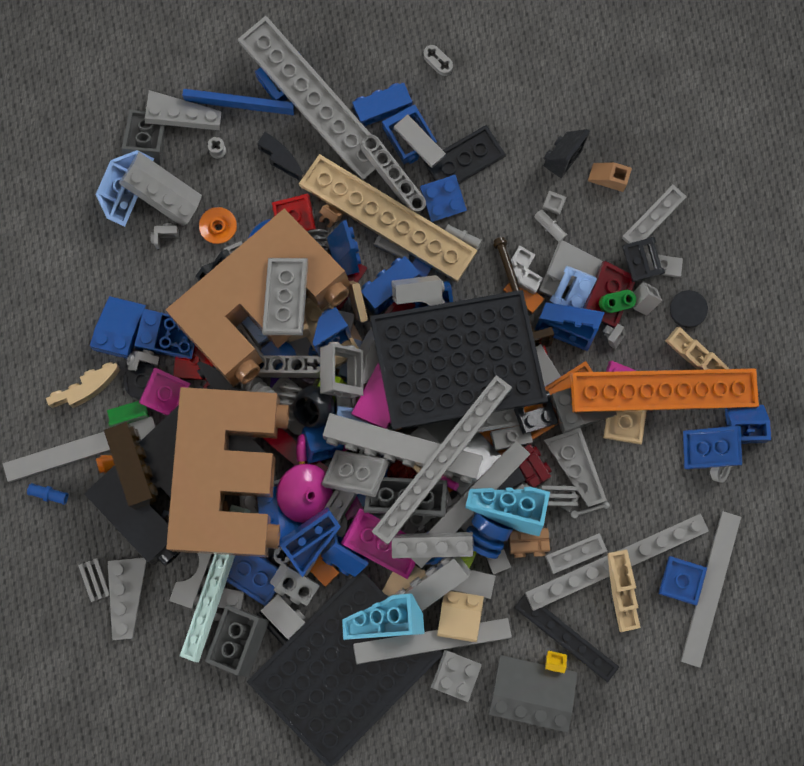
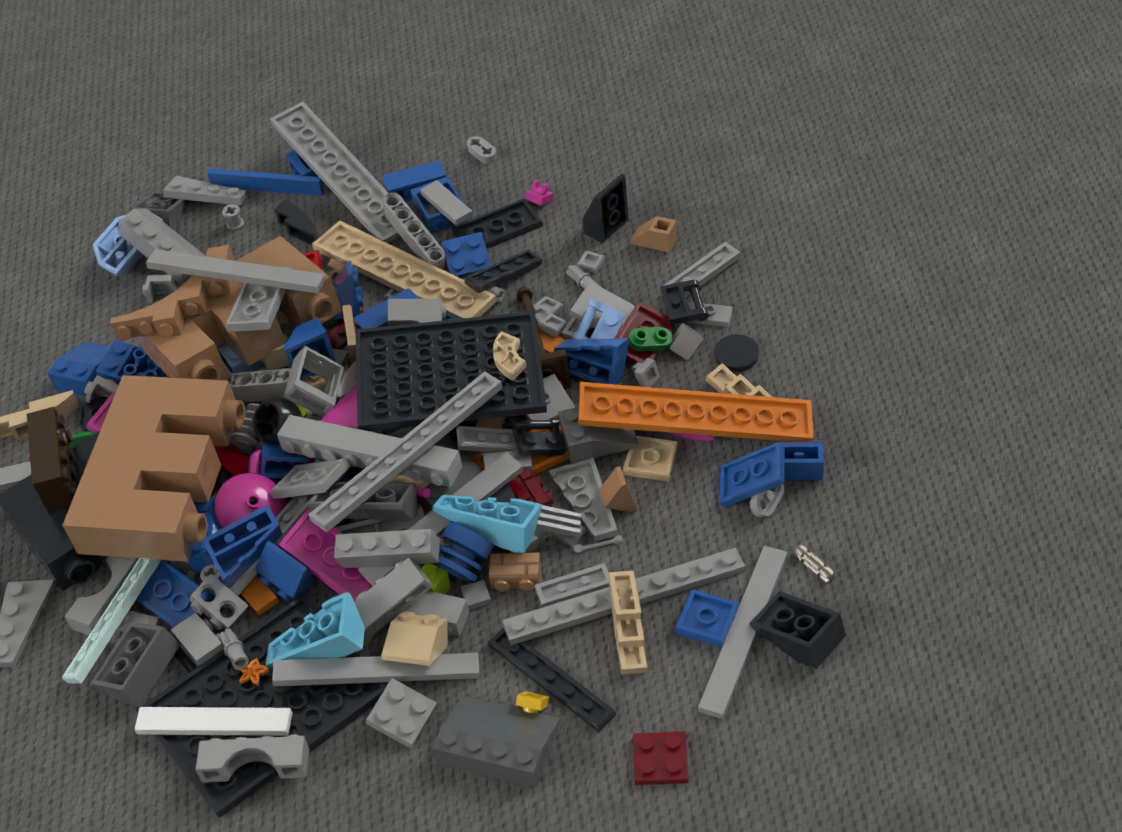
camera: 15 degrees right, 30 degrees down
(221, 297) = (168, 314): none -> medium nougat arch
(260, 272) = (236, 271): none -> light grey tile
(312, 692) = (213, 721): none -> white tile
(316, 627) = (234, 649): none -> light grey axle
(334, 646) = (253, 671): none -> orange plant
(378, 724) = (221, 758): none -> light grey arch
(479, 219) = (503, 271): none -> black tile
(499, 122) = (539, 195): none -> dark pink tile
(507, 347) = (506, 355): none -> tan tile
(603, 467) = (617, 493): none -> medium nougat slope
(655, 704) = (660, 758): none -> dark red plate
(753, 590) = (800, 628): none -> black slope
(762, 525) = (815, 563): none -> dark tan axle

